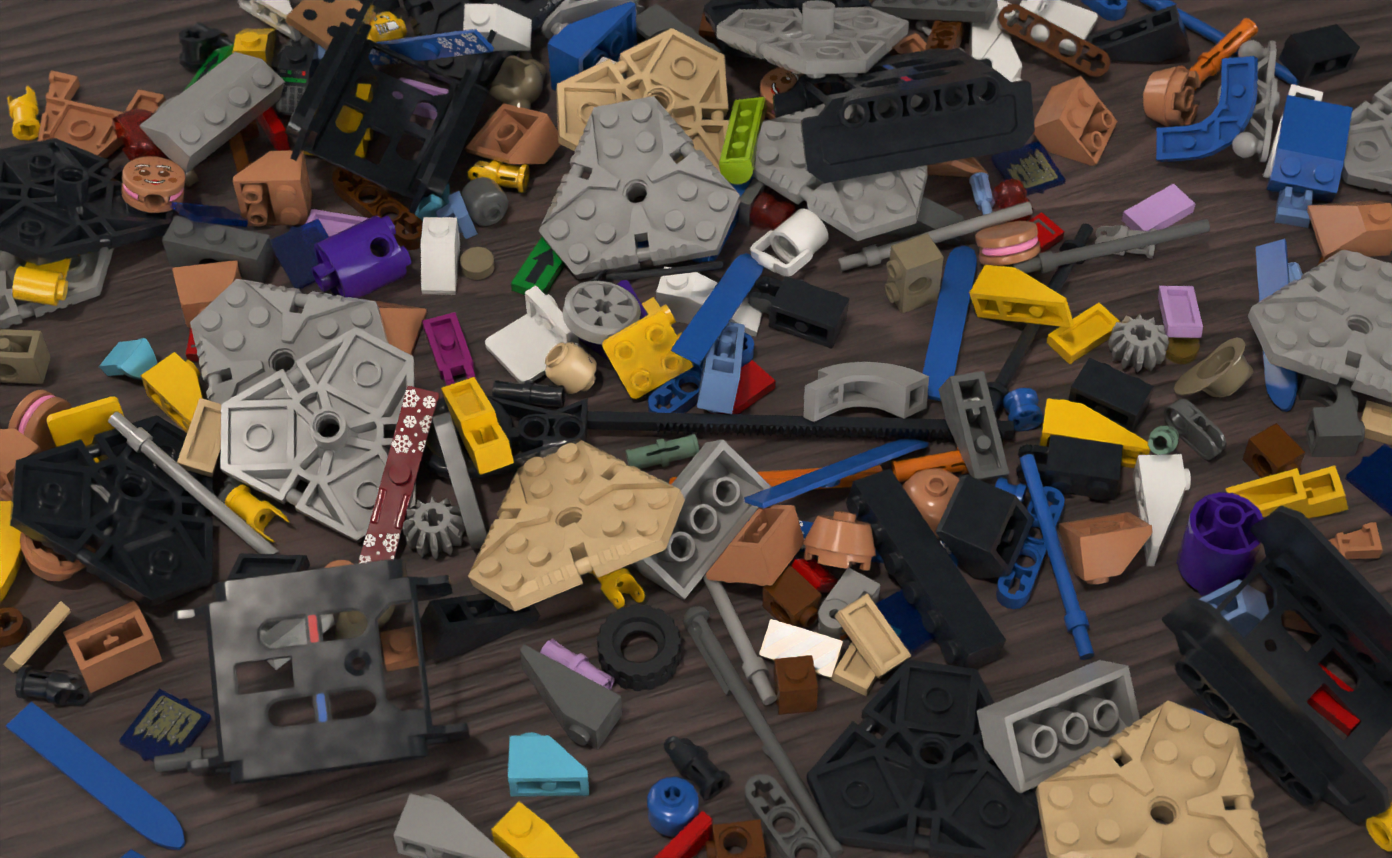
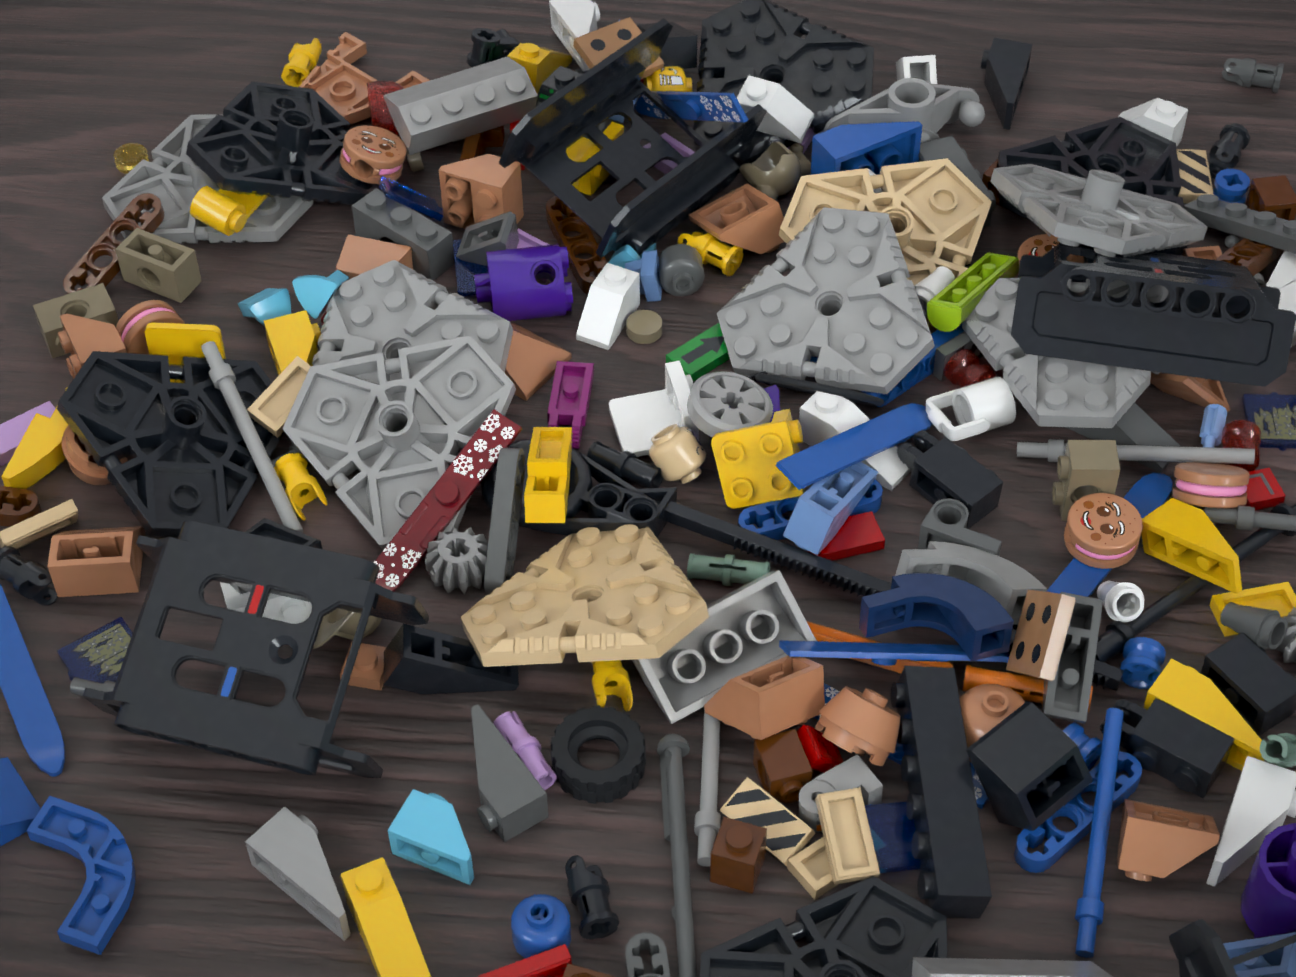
camera: 25 degrees right, 5 degrees down
(179, 331) = (316, 291): none -> medium azure tile
(303, 230) = (488, 235): none -> dark grey slope
(713, 144) = (932, 285): none -> white cone
(821, 351) = (948, 524): none -> dark grey plate
(858, 418) = (943, 604): none -> dark blue arch
(944, 311) = (1103, 530): none -> nougat head
(946, 416) = (1041, 634): none -> medium nougat tile
(986, 360) = (1121, 600): none -> white cone
(1098, 346) = (1258, 624): none -> dark grey cone

